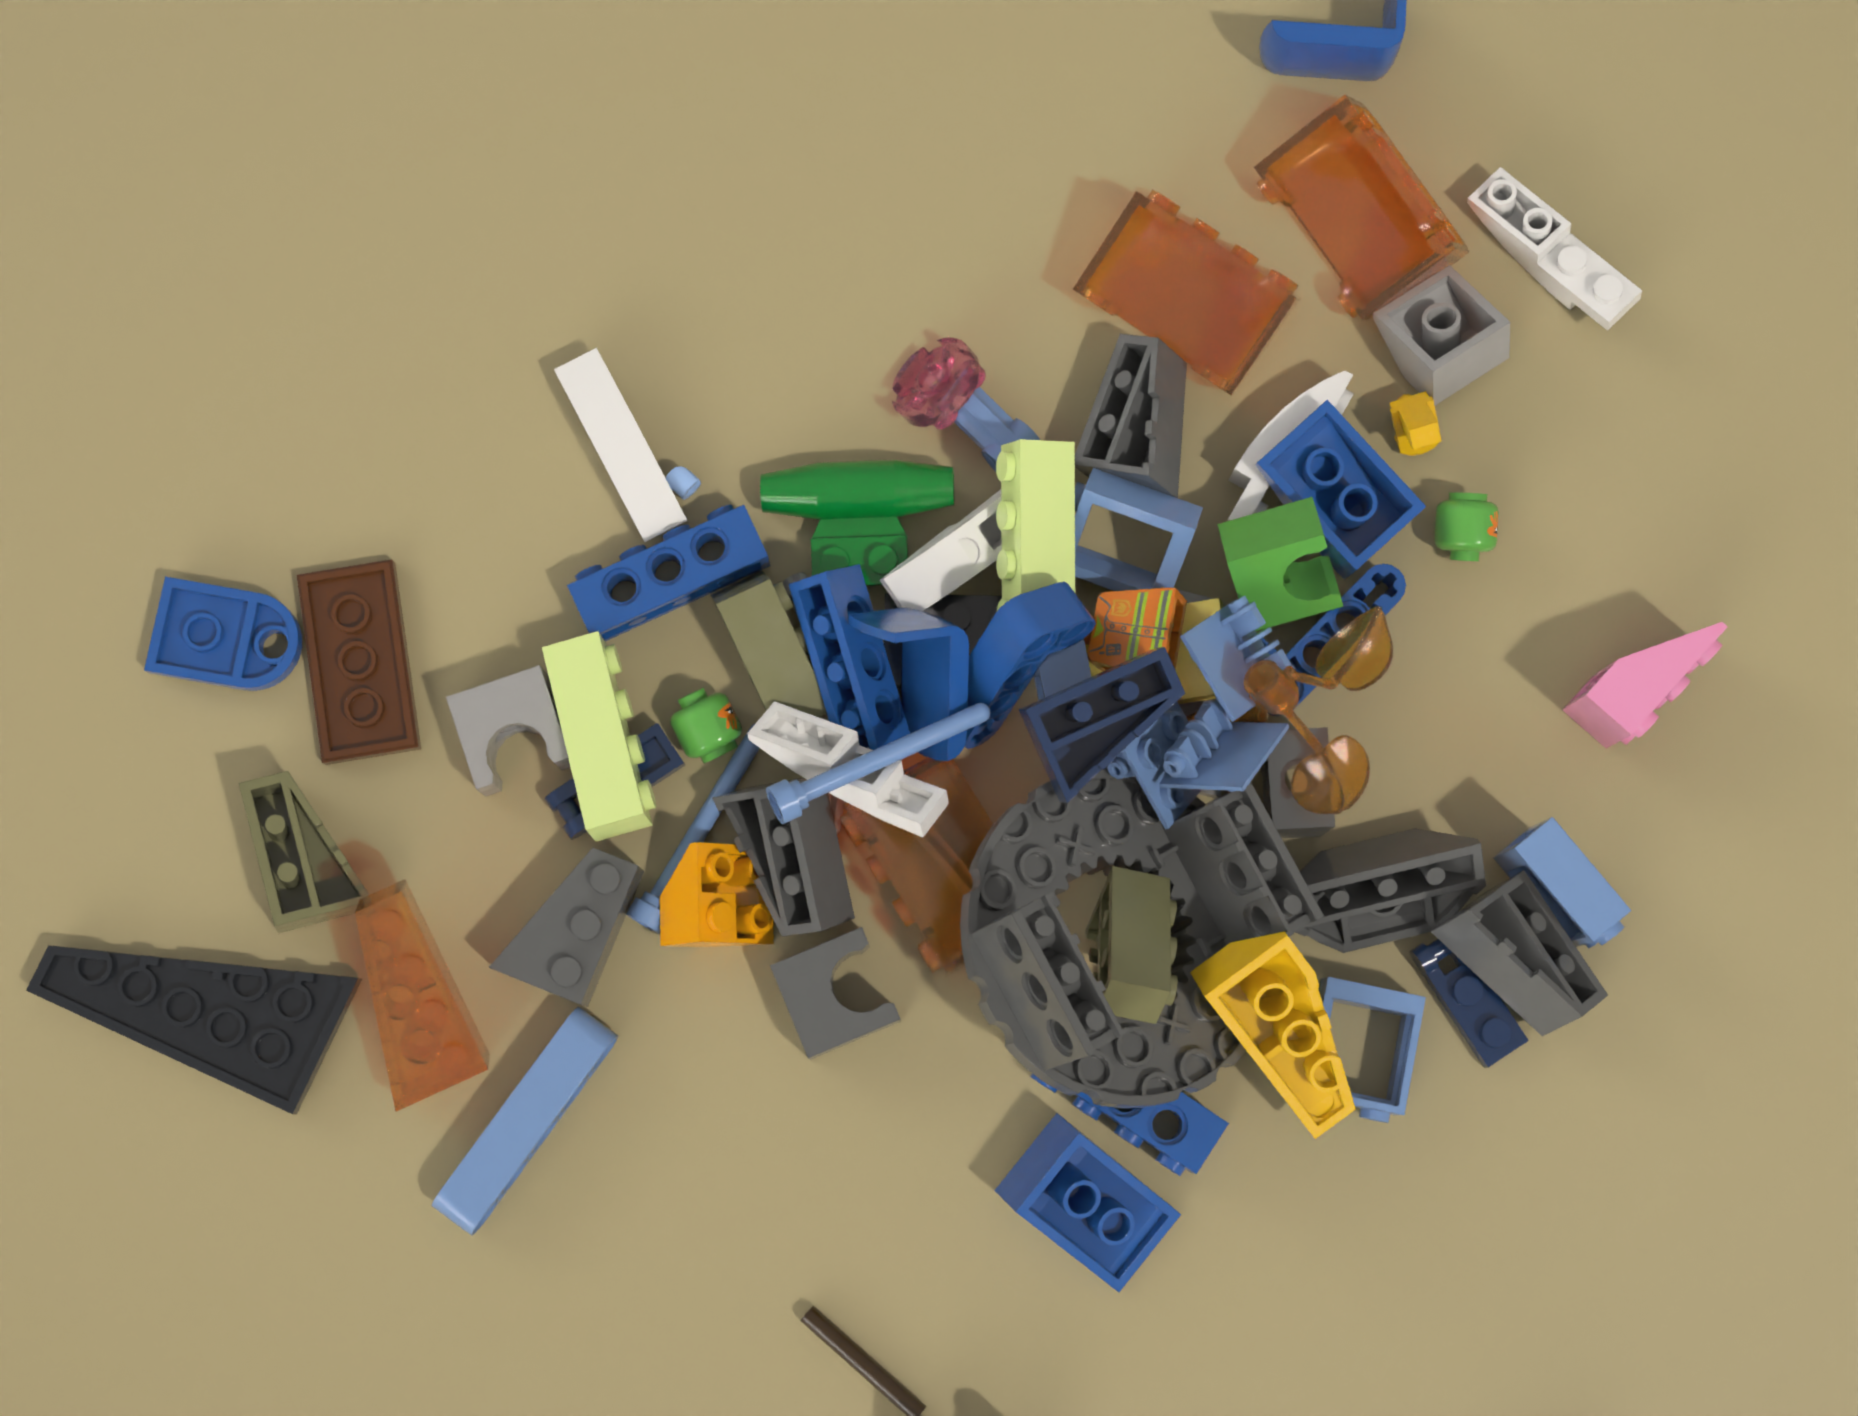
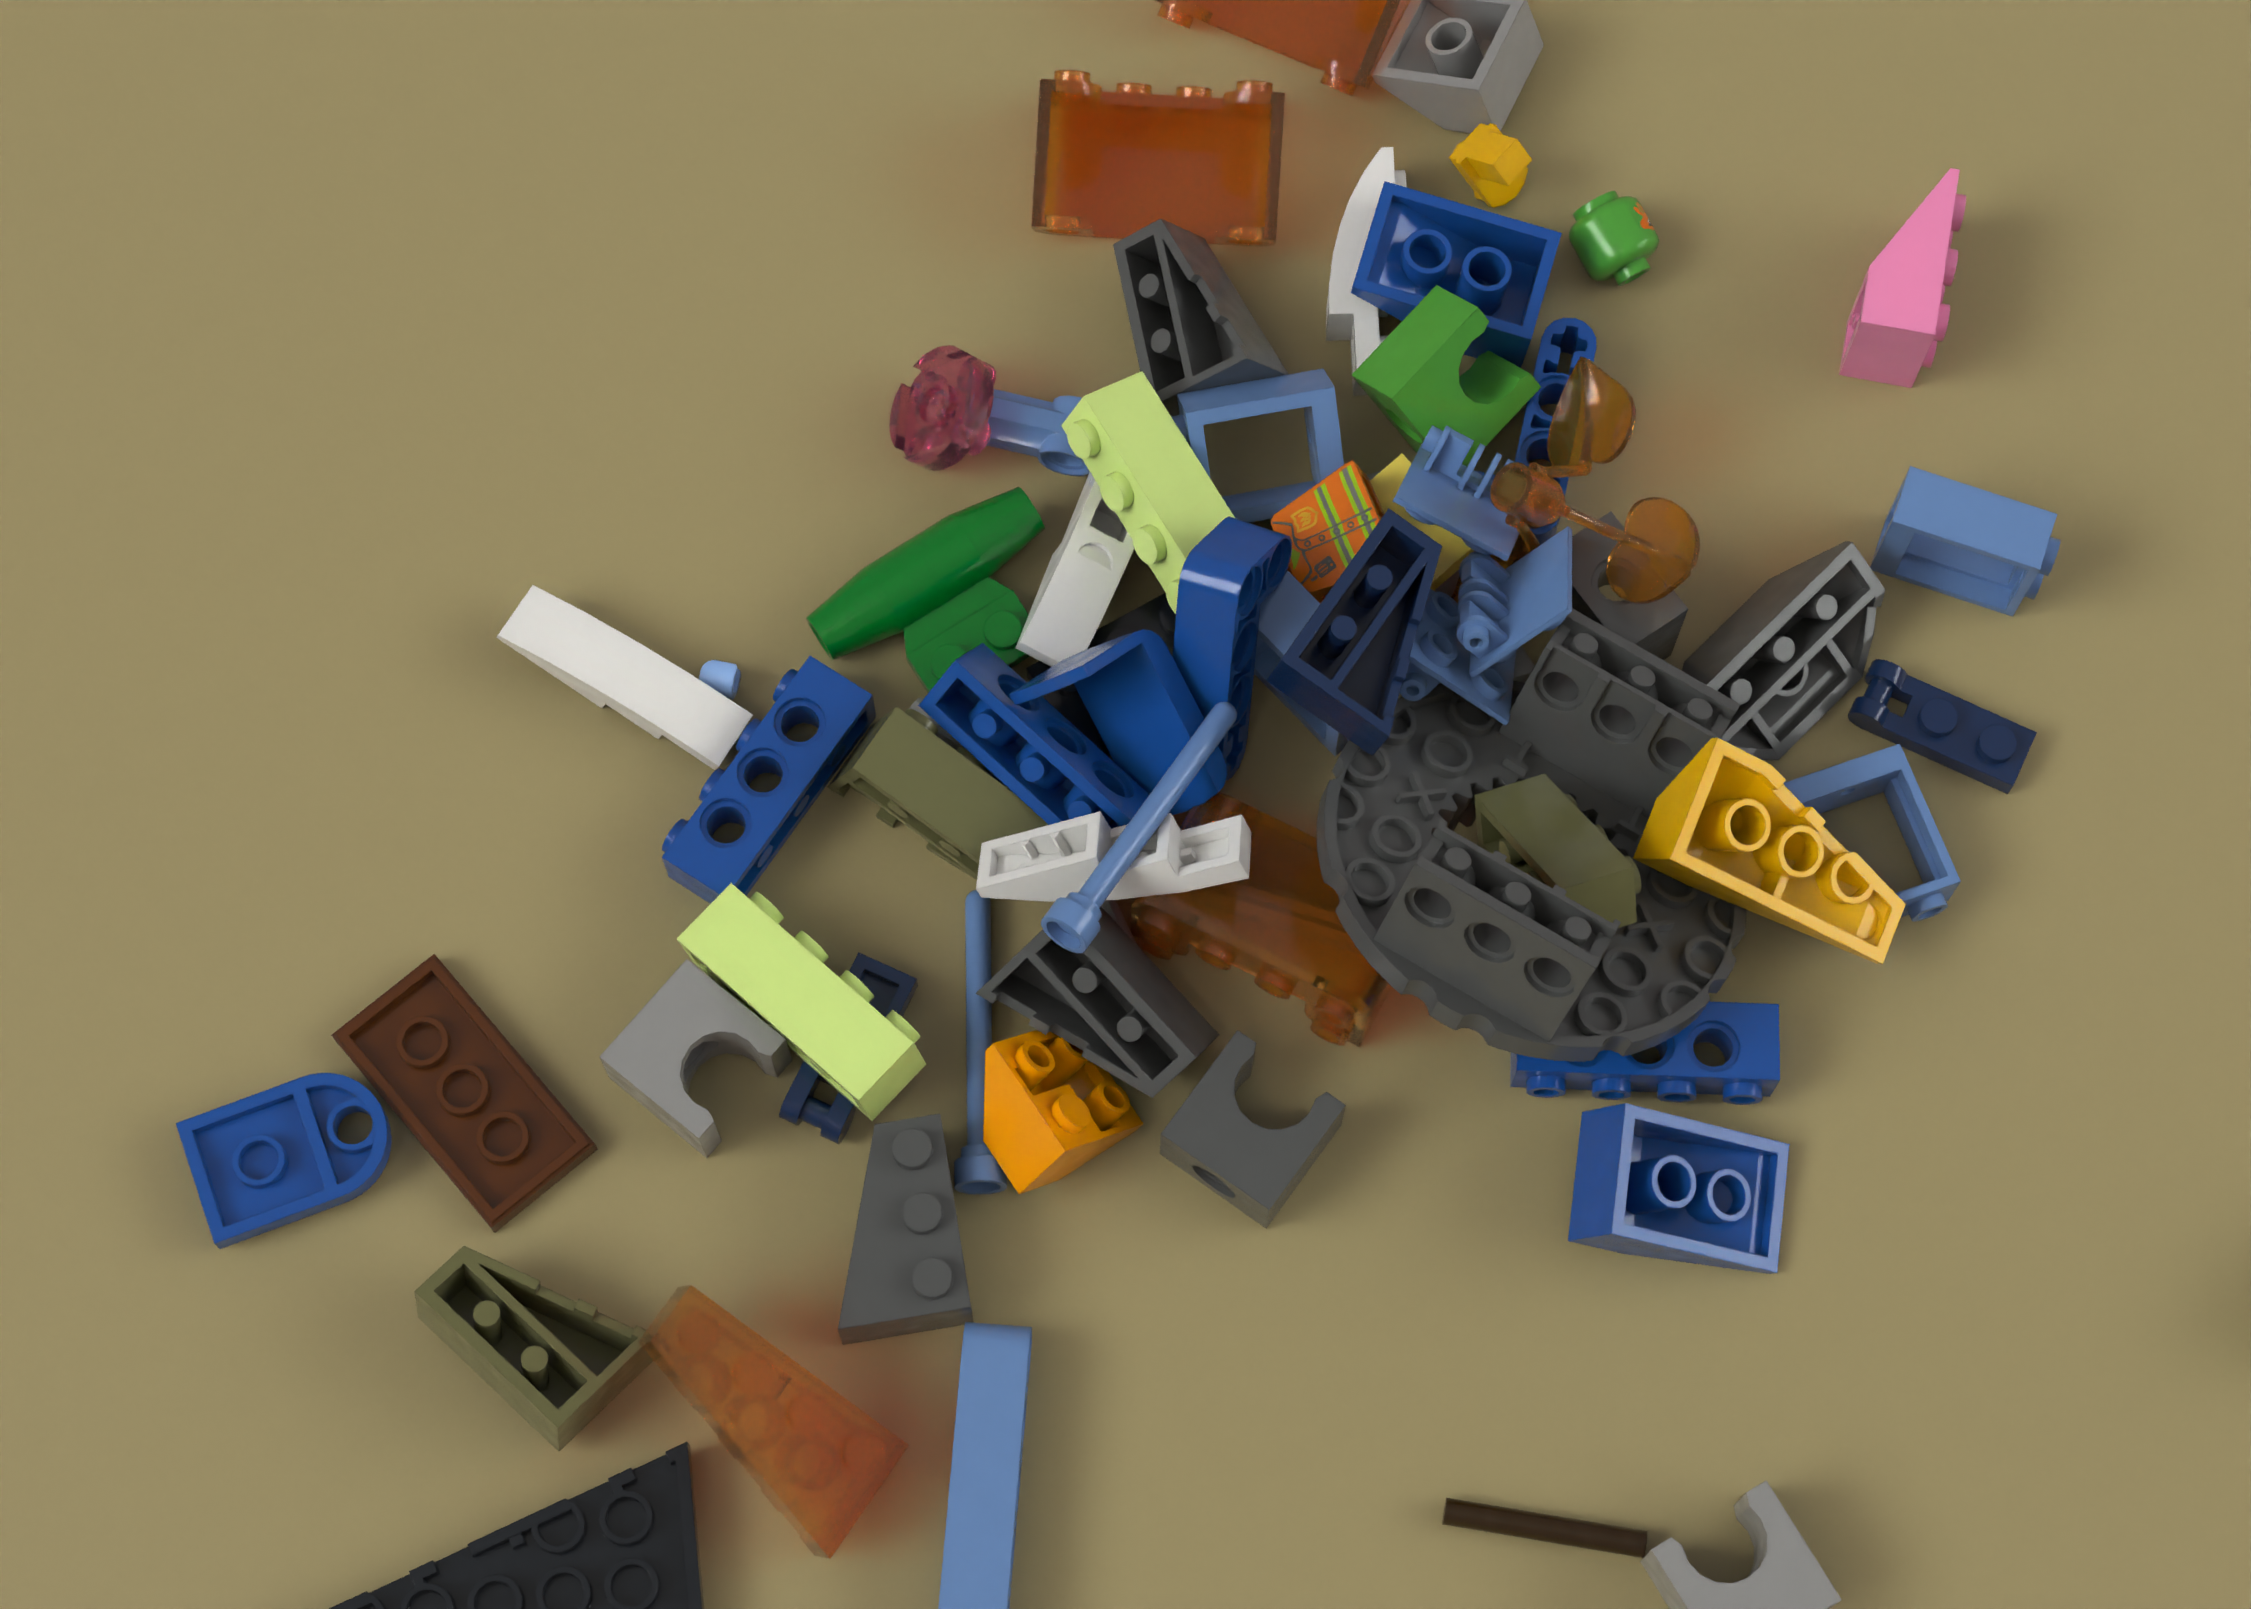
camera: 30 degrees left, 10 degrees down
(706, 725) = (915, 924): bright green head -> none
(1523, 954) = (1974, 639): dark grey wedge -> none

